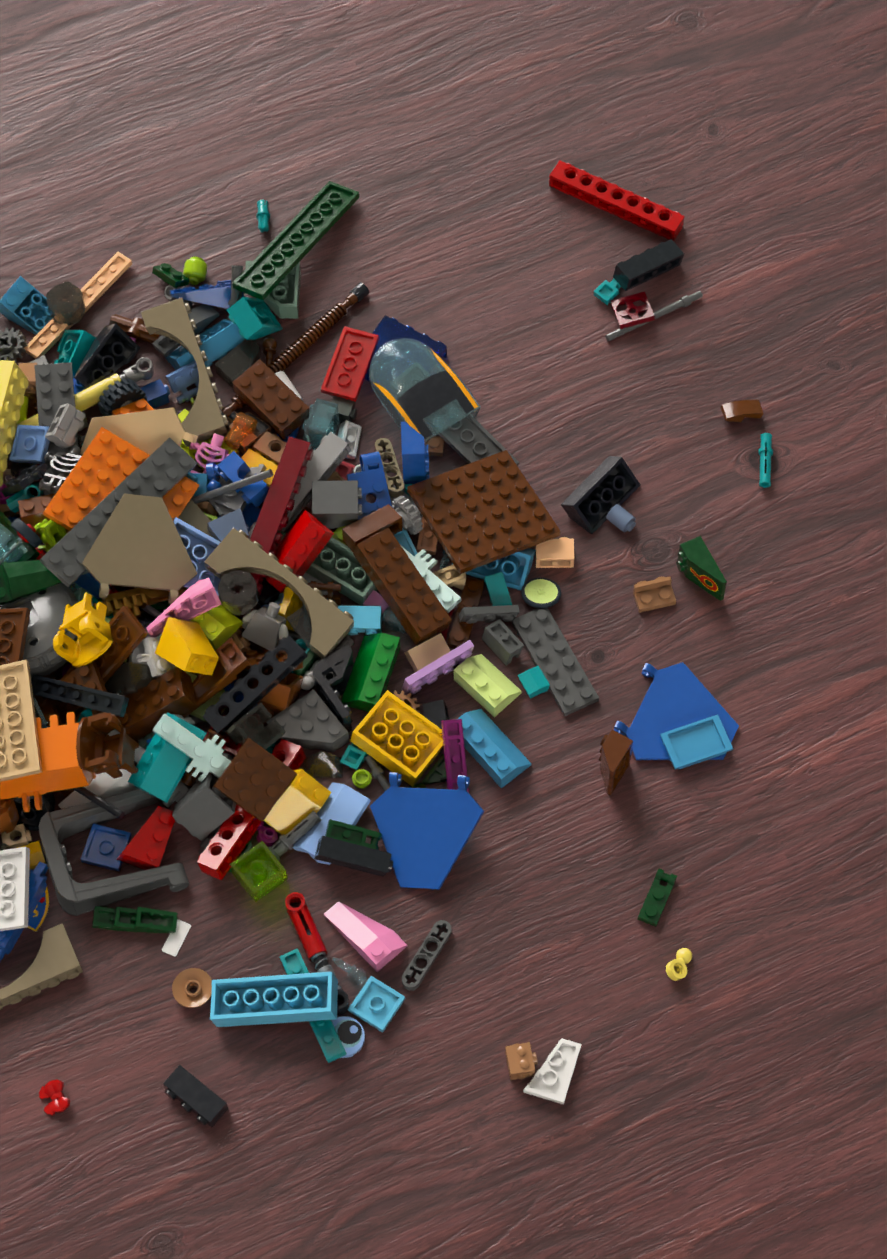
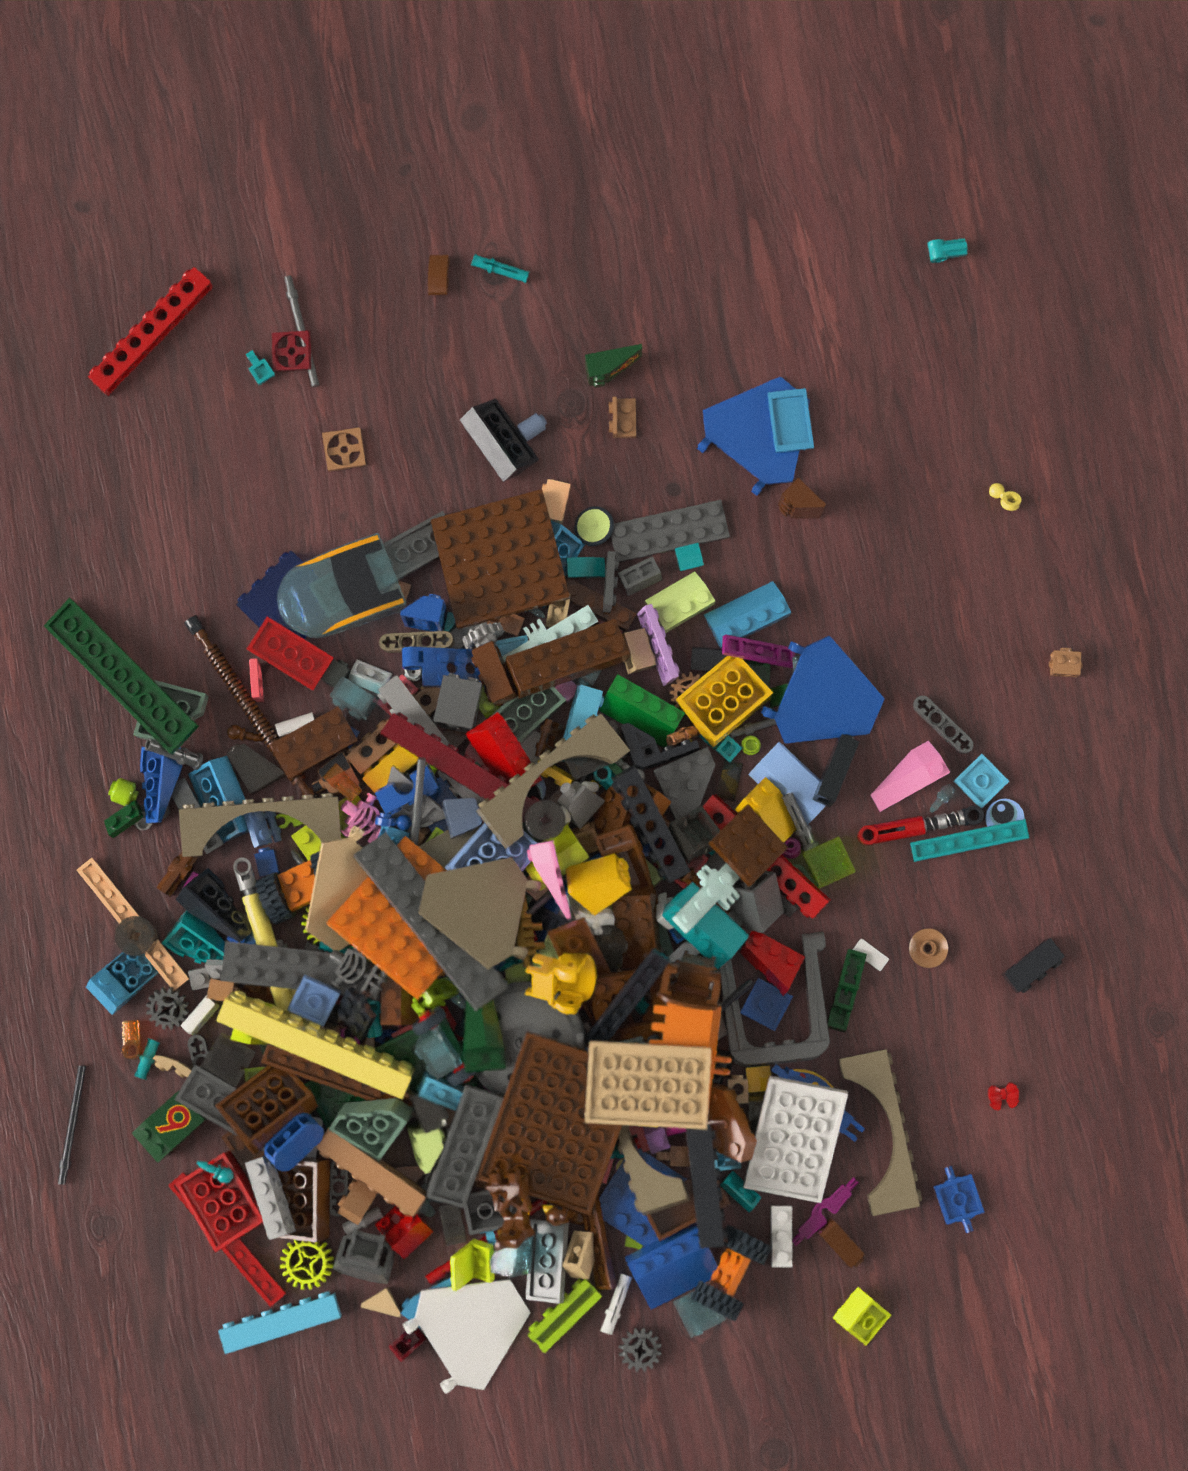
camera: 80 degrees left, 20 degrees up
(65, 426) = (308, 960): light grey brick -> none
(253, 318) = (212, 742): teal slope -> none
(263, 215) = (69, 706): teal axle -> none
(274, 999) = (964, 873): medium azure brick -> none
(310, 343) = (256, 680): none -> coral piece
(352, 834) = (815, 766): dark green plate -> none
(357, 711) = (682, 734): none -> nougat pin
(547, 388) = (356, 432): none -> medium nougat piece
(555, 1075) = (1082, 634): white wing -> none
(648, 265) = (244, 320): black brick -> none
(657, 898) = (935, 499): dark green plate -> none

